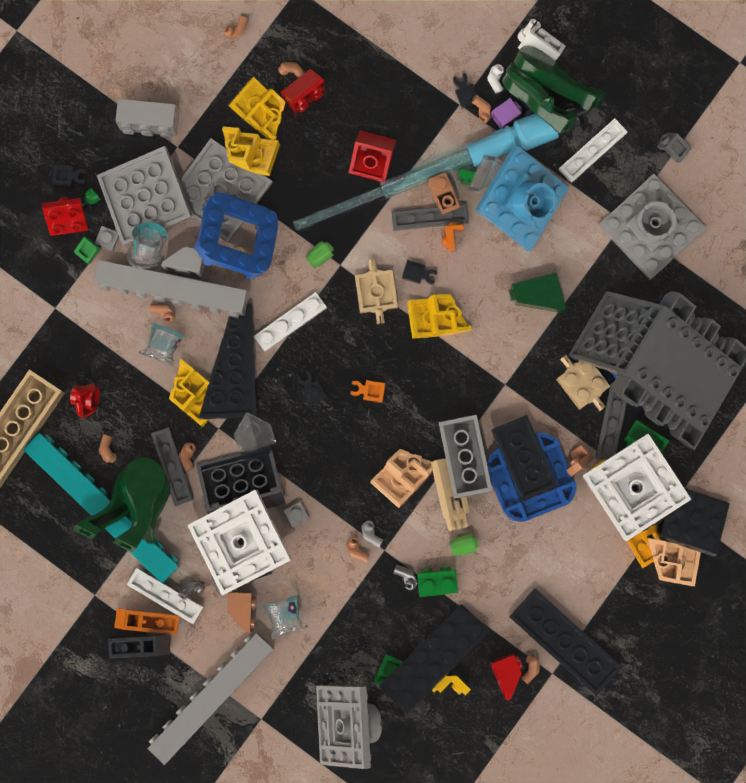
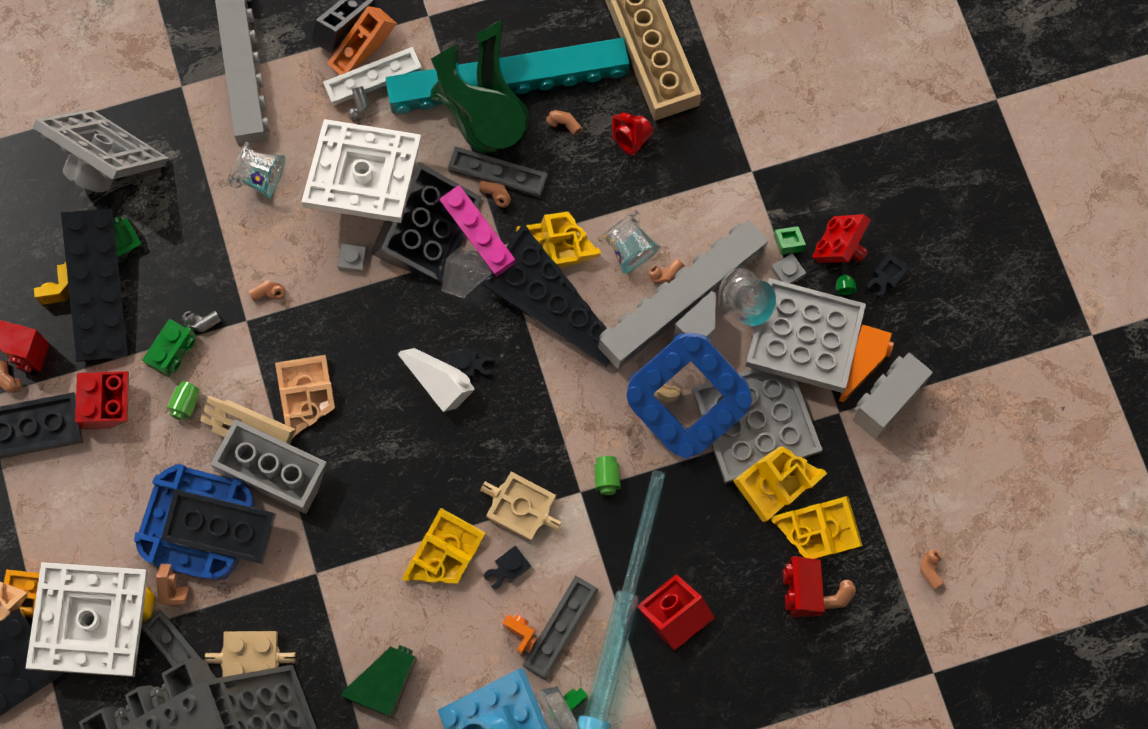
camera: 130 degrees right, 10 degrees down
(127, 150) = (868, 355): none -> orange slope
(224, 442) = (477, 230): none -> dark pink plate
(240, 609) = (298, 135): nougat slope -> none
(290, 322) = (557, 394): white plate -> none
(335, 397) = (442, 382): none -> white slope
(369, 534) = (272, 315): light grey arm -> none
(372, 391) = (418, 423): orange plate -> none
(443, 193) = (572, 657): nougat slope -> none
(500, 593) = (101, 399): none -> red slope
(639, 430) = (146, 674): green bracket -> none

